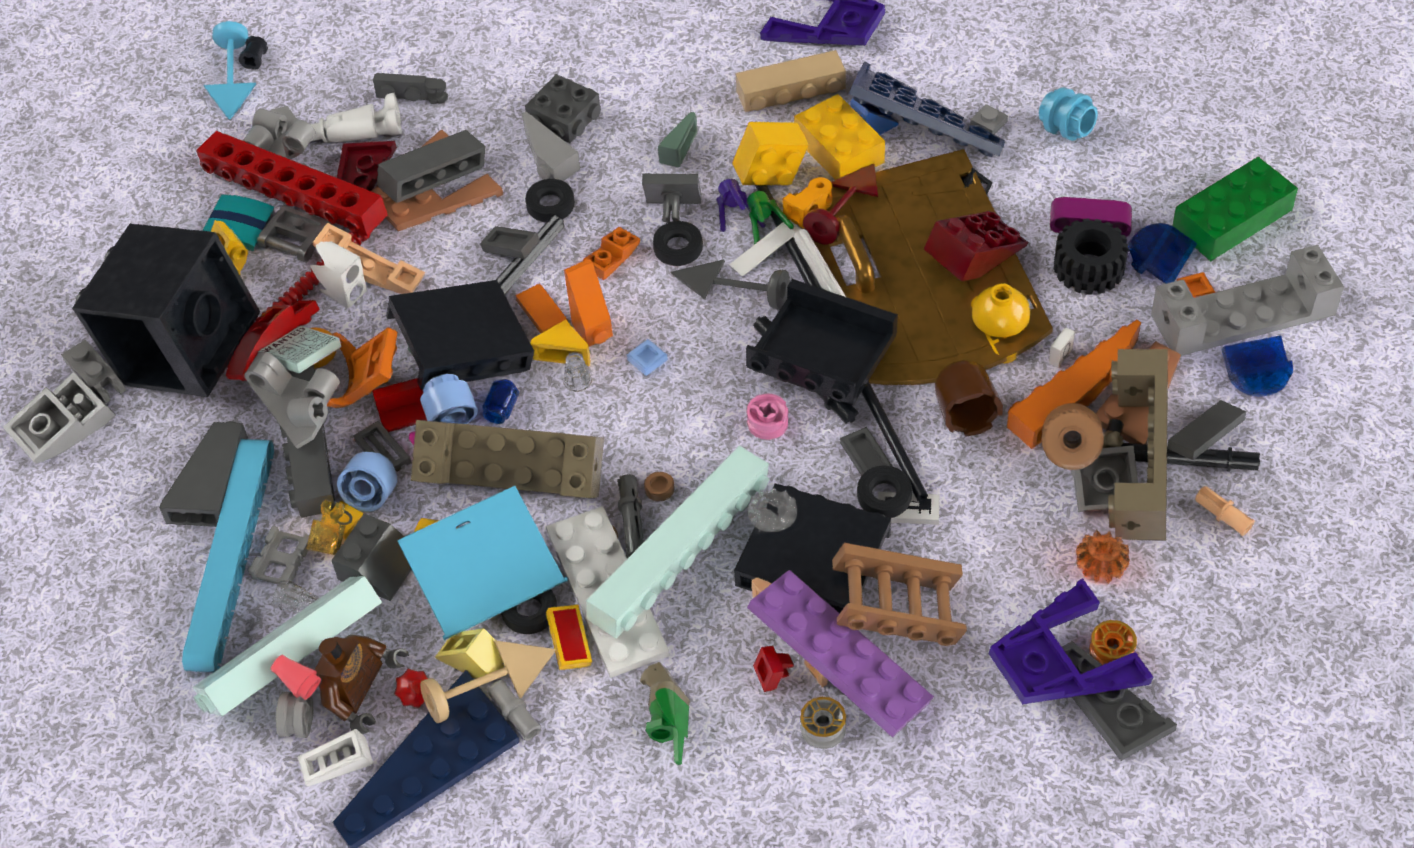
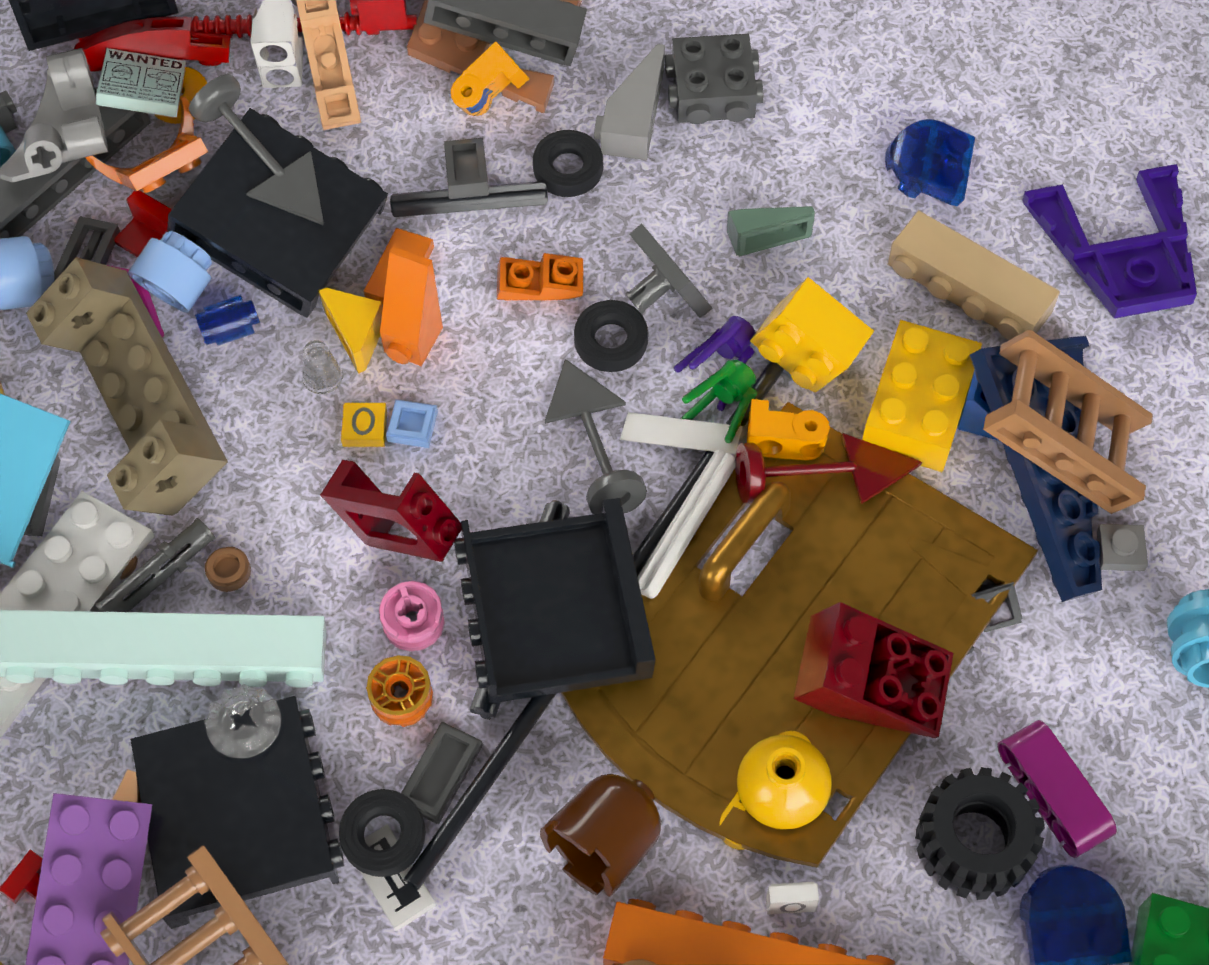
camera: 50 degrees right, 10 degrees up
(454, 309) = (290, 188): none -> dark grey piece
(462, 203) = (485, 80): none -> light orange leg
(627, 378) = (364, 425): none -> yellow tile
(686, 392) = (374, 513): none -> dark red panel
(705, 56) = (931, 160): none -> clear blue slope
(807, 434) = (410, 676): none -> orange wheel
(916, 85) = (1050, 446): none -> medium nougat fence

